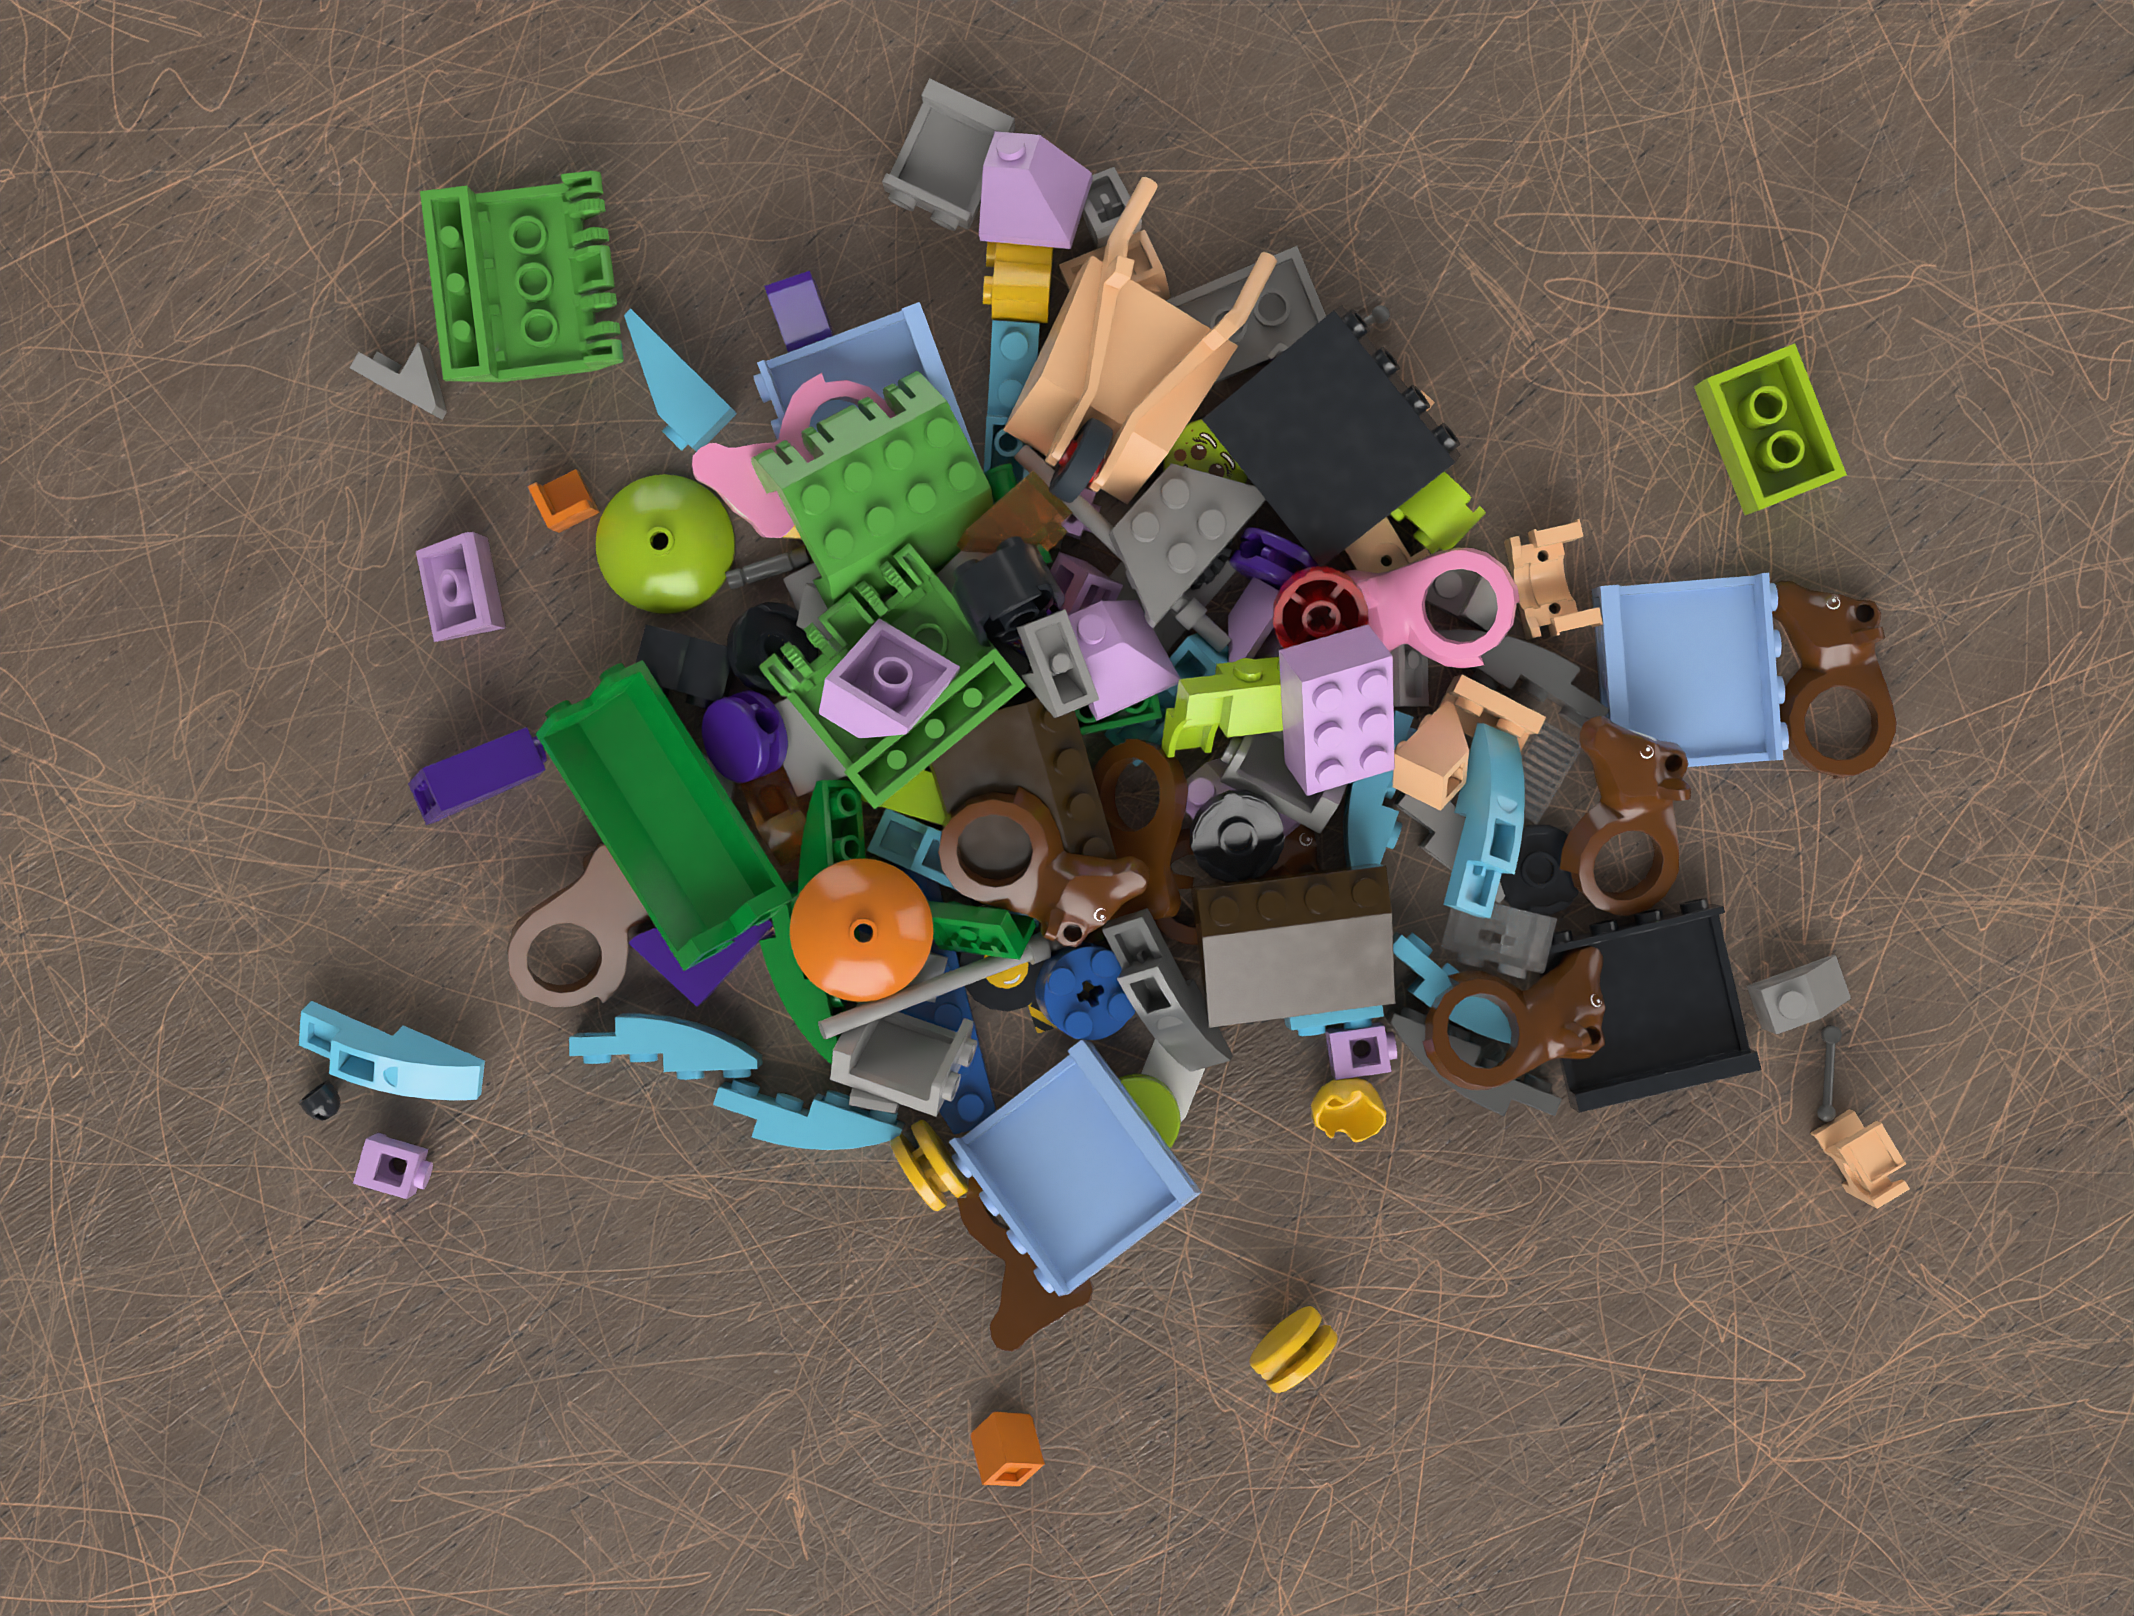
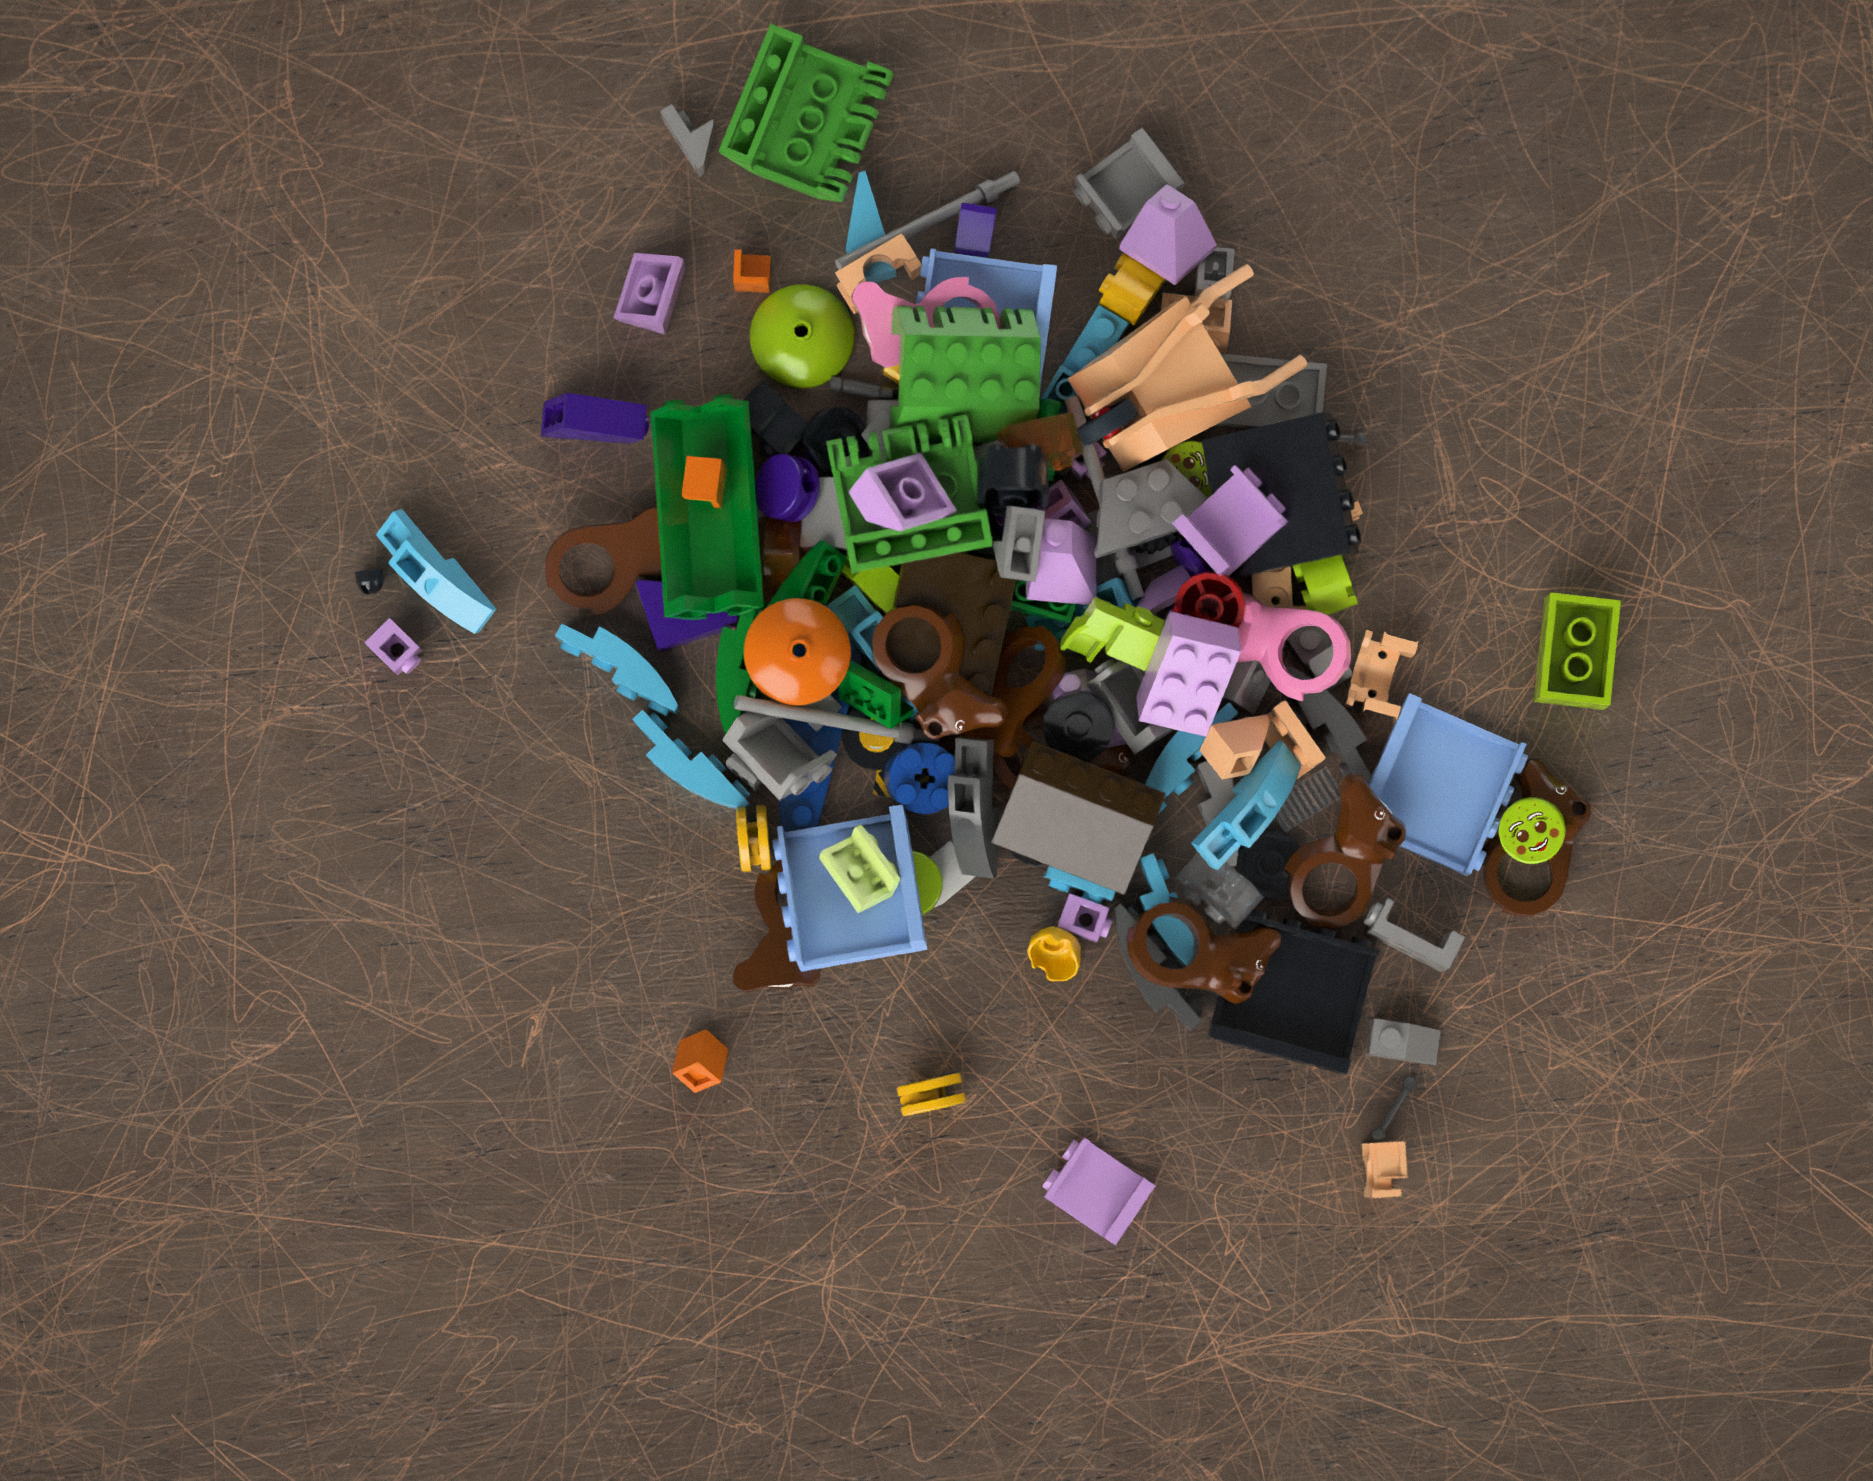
camera: 25 degrees right, 5 degrees down
(642, 783) = (704, 480): none -> orange panel
(717, 388) = (894, 252): none -> light nougat piece
(785, 259) = (984, 193): none -> light grey bar
(1074, 1142) = (861, 869): none -> yellowish green bracket
(1293, 500) = (1232, 522): none -> lavender panel
(1542, 1350) = (1097, 1190): none -> lavender panel
(1800, 871) = (1436, 957): none -> light grey panel
(1829, 671) = (1532, 830): none -> lime head

